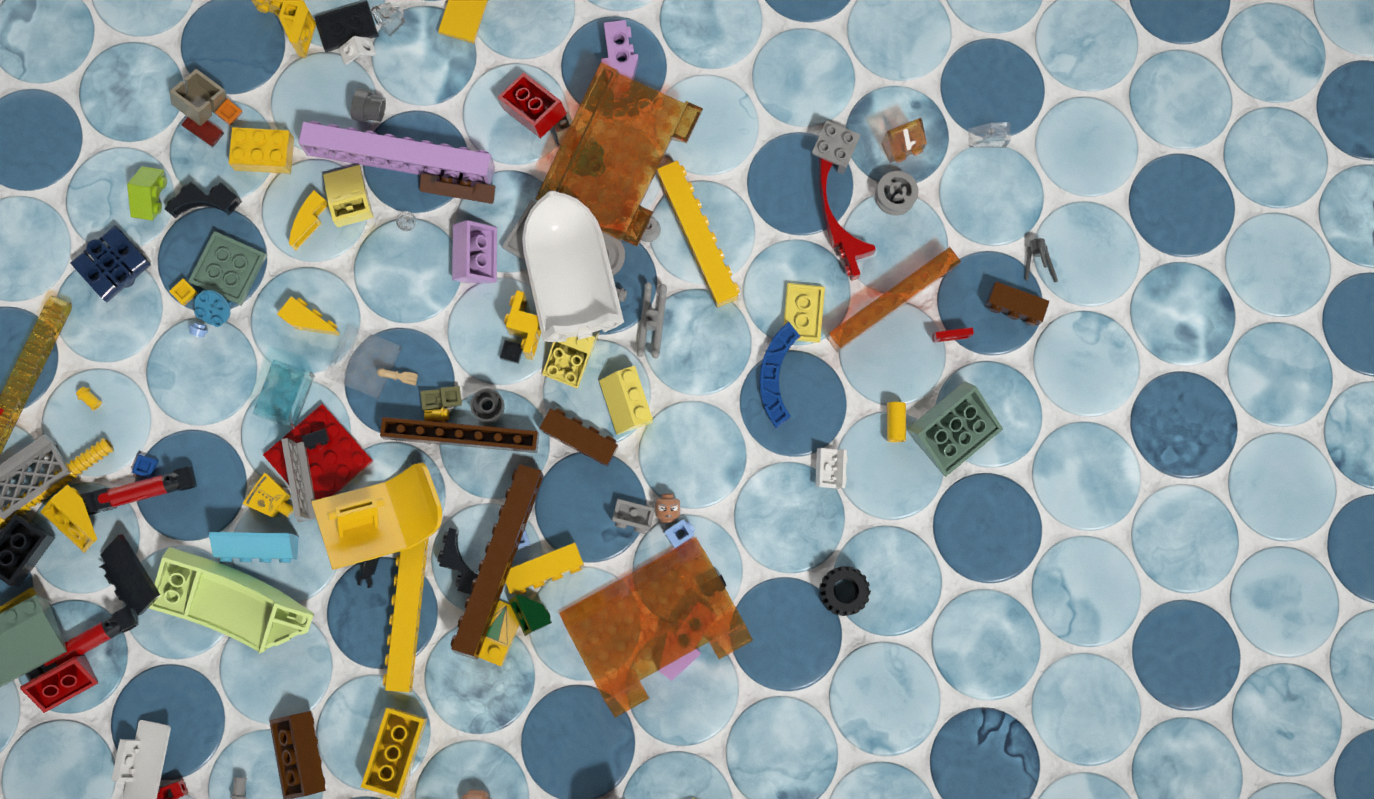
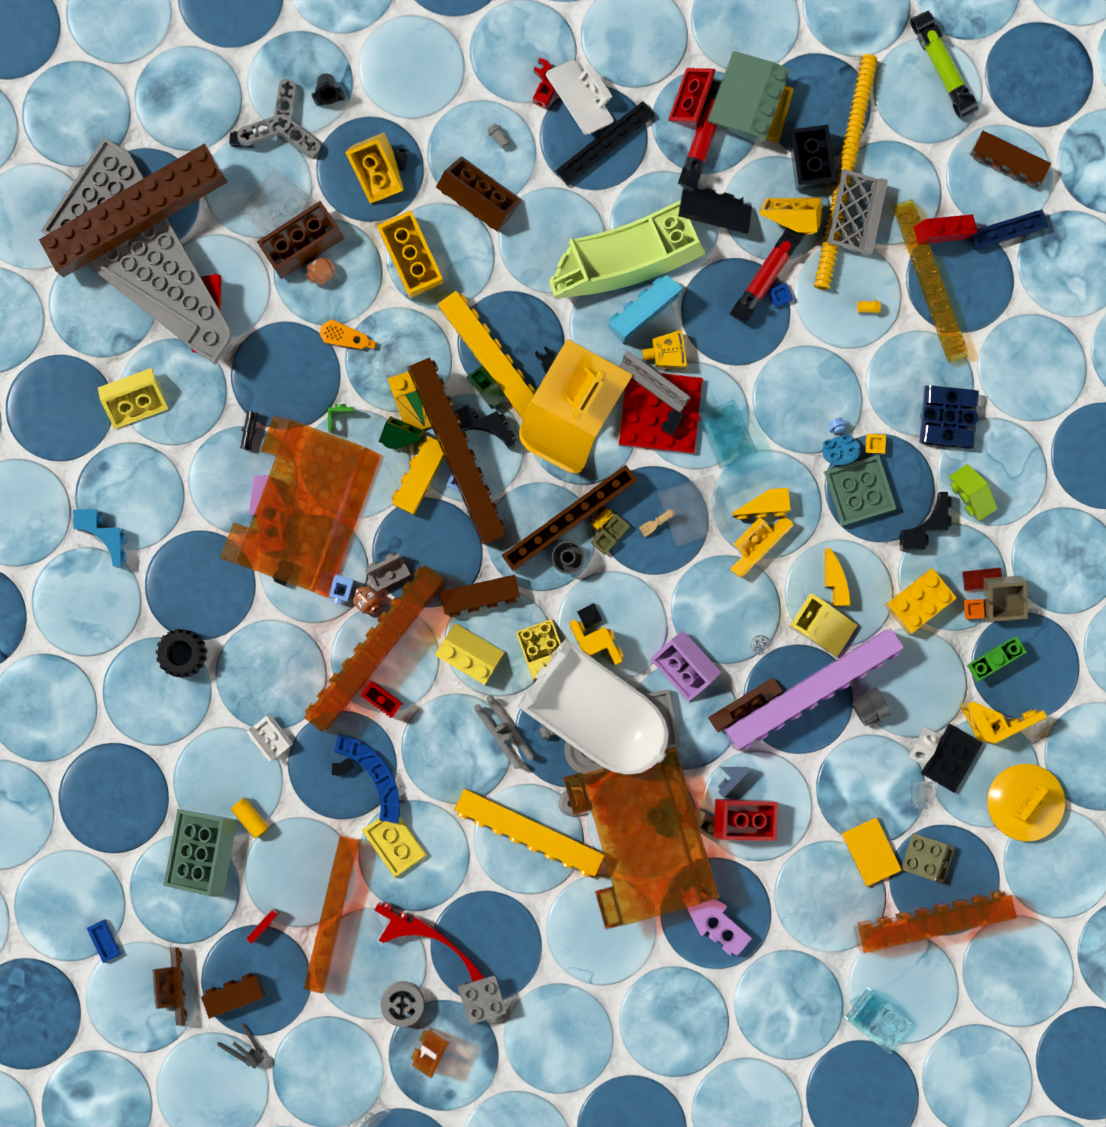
camera: 145 degrees right, 5 degrees up
(163, 708) = (605, 143): none -> black tile
(246, 63) = (996, 658): none -> bright green slope
(338, 295) = (757, 542): none -> yellow bracket
(431, 593) = (486, 387): none -> dark green slope
(502, 730) = (347, 337): none -> light orange piece
(511, 143) = (736, 775): none -> sand blue slope
(560, 677) = (338, 409): none -> bright green bracket
(644, 722) = (249, 430): none -> black pin
(694, 464) = (374, 649): none -> clear orange brick
(721, 422) = (382, 699): none -> red brick
(795, 399) = (342, 768): none -> black piece
(822, 729) = (114, 538): none -> dark azure arch
(1060, 349) = (168, 987): none -> reddish brown bracket
(1081, 426) = (104, 941): none -> blue tile

